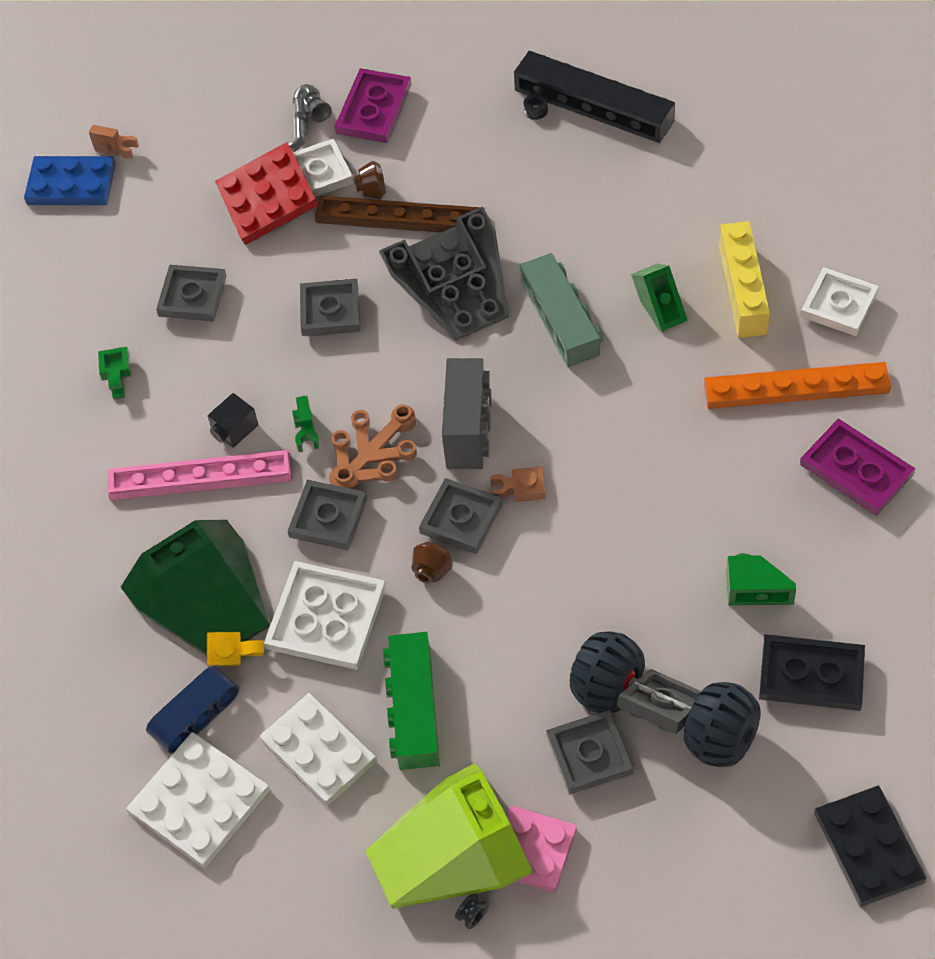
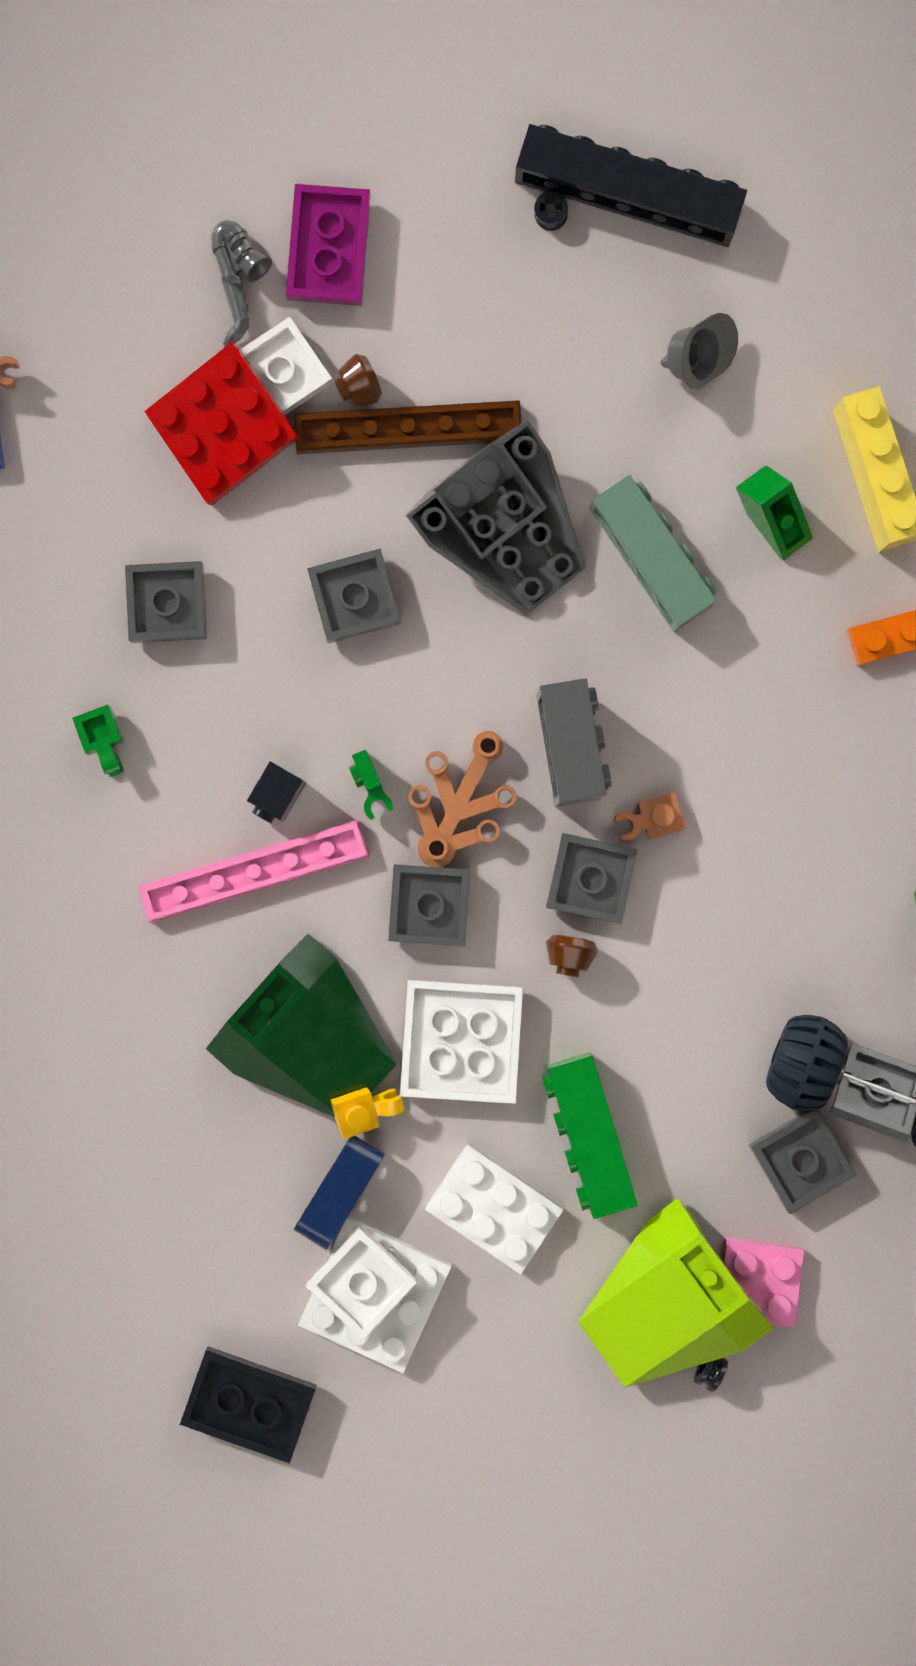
camera: 20 degrees left, 30 degrees up
(64, 866) = (248, 1404): none -> black plate
(188, 772) = (361, 1283): none -> white plate
(626, 191) = (702, 350): none -> dark grey piece

